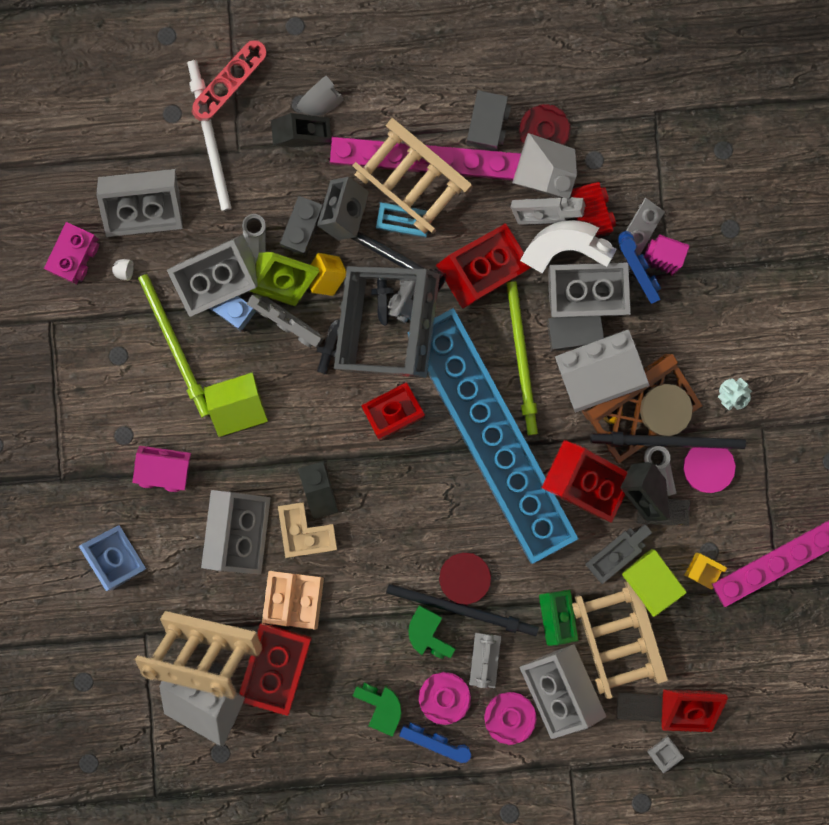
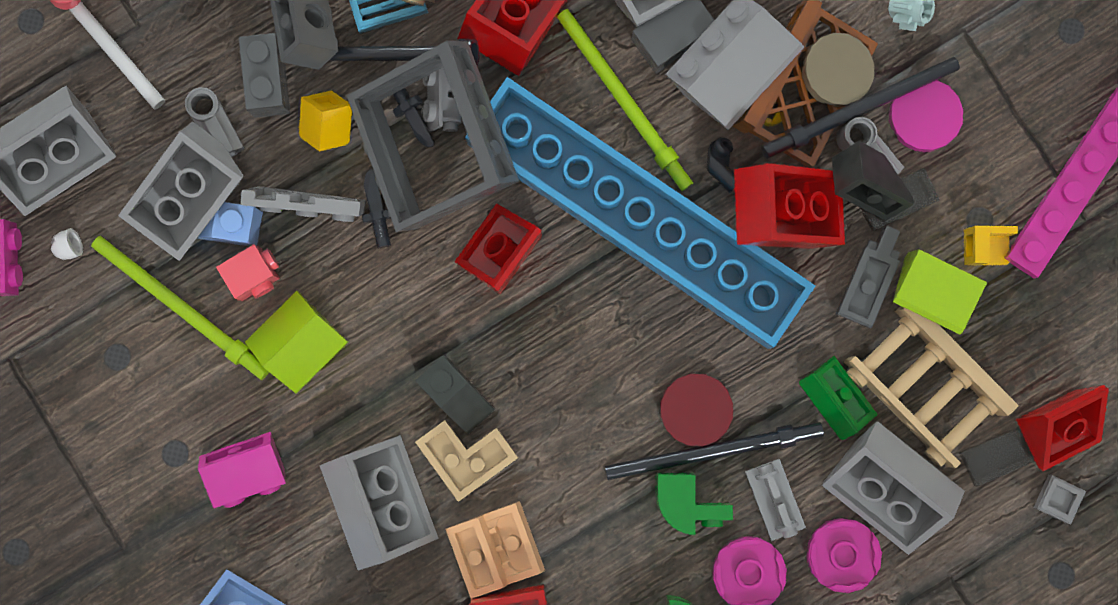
camera: 30 degrees left, 0 degrees up
(229, 346) = (250, 273): none -> coral brick
(282, 277) = (271, 150): lime slope -> none
(561, 428) = (718, 162): none -> black arm

